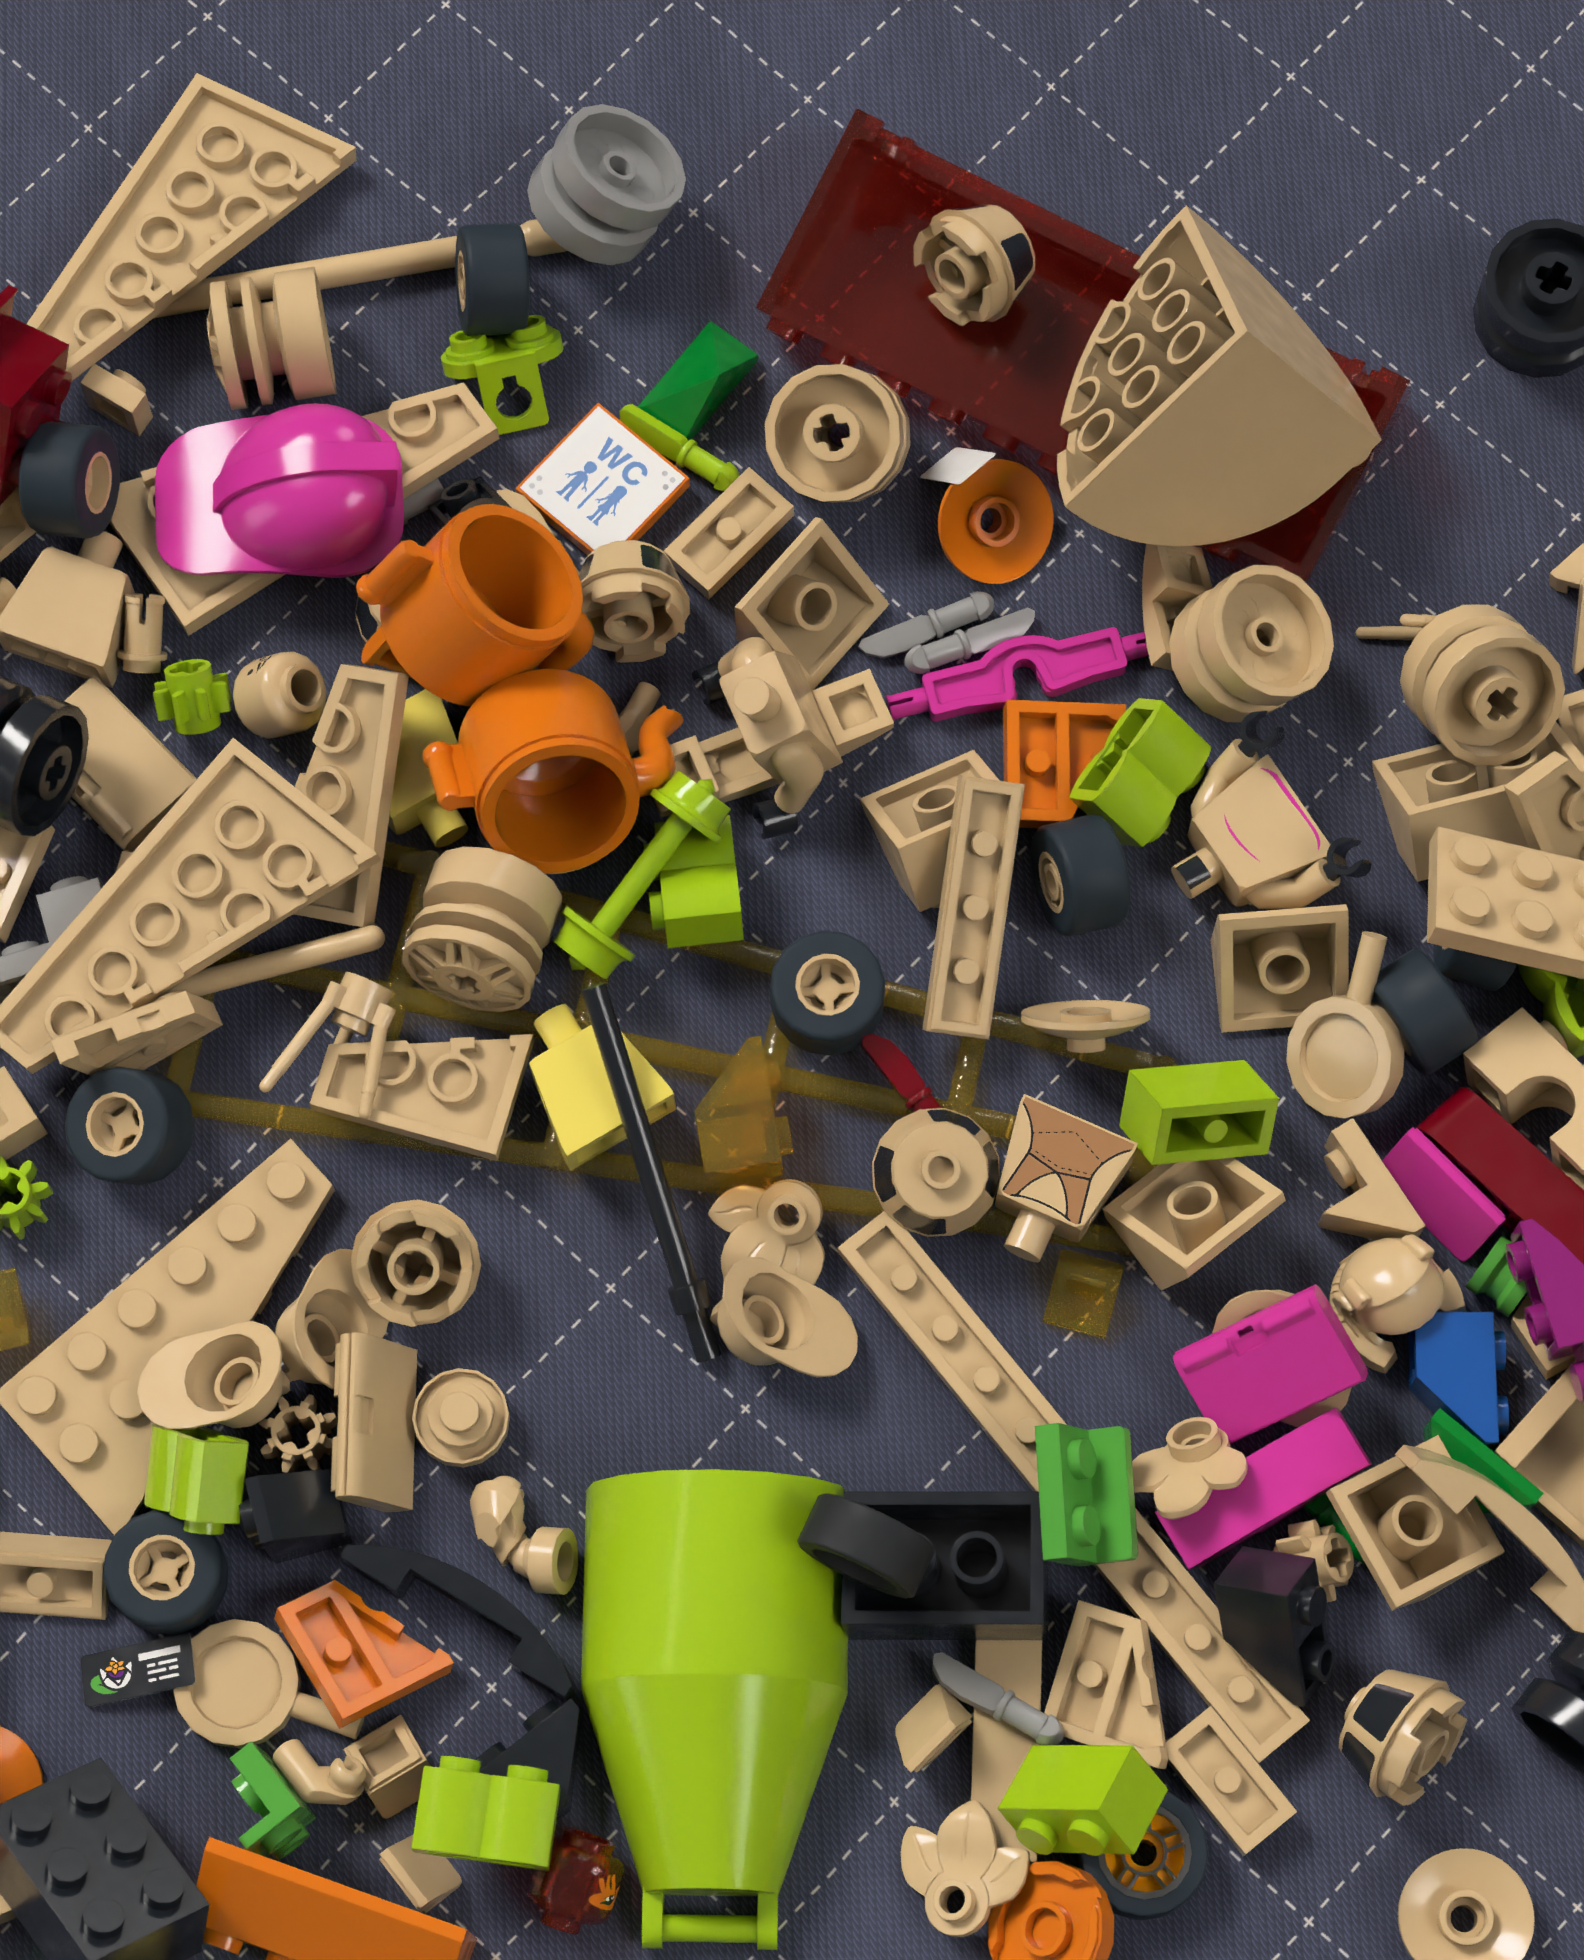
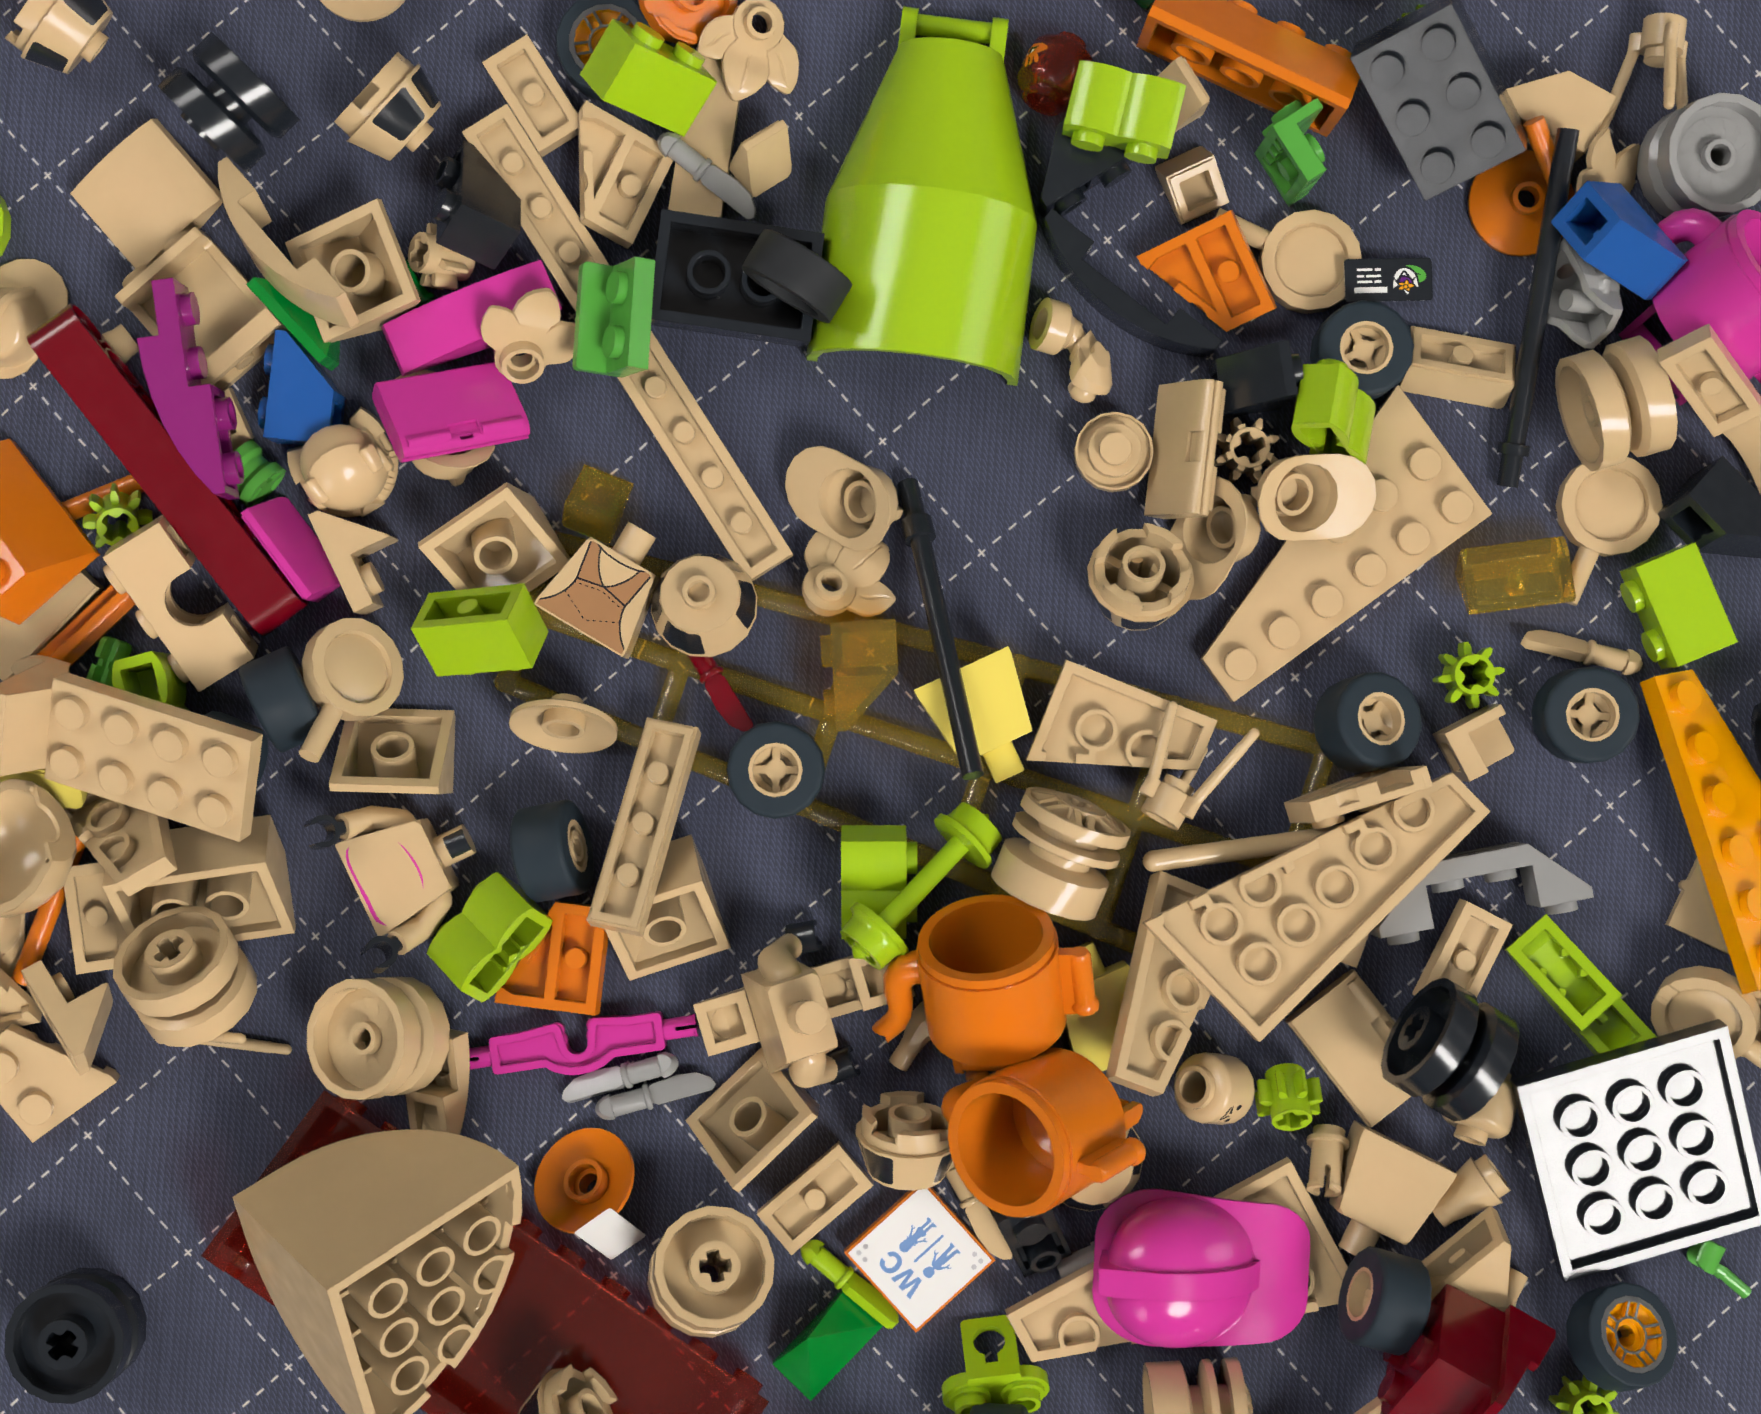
camera: 175 degrees left, 15 degrees up
(117, 398) = (1333, 1384): tan plate -> none
(320, 1784) = (1250, 170): tan arm -> none

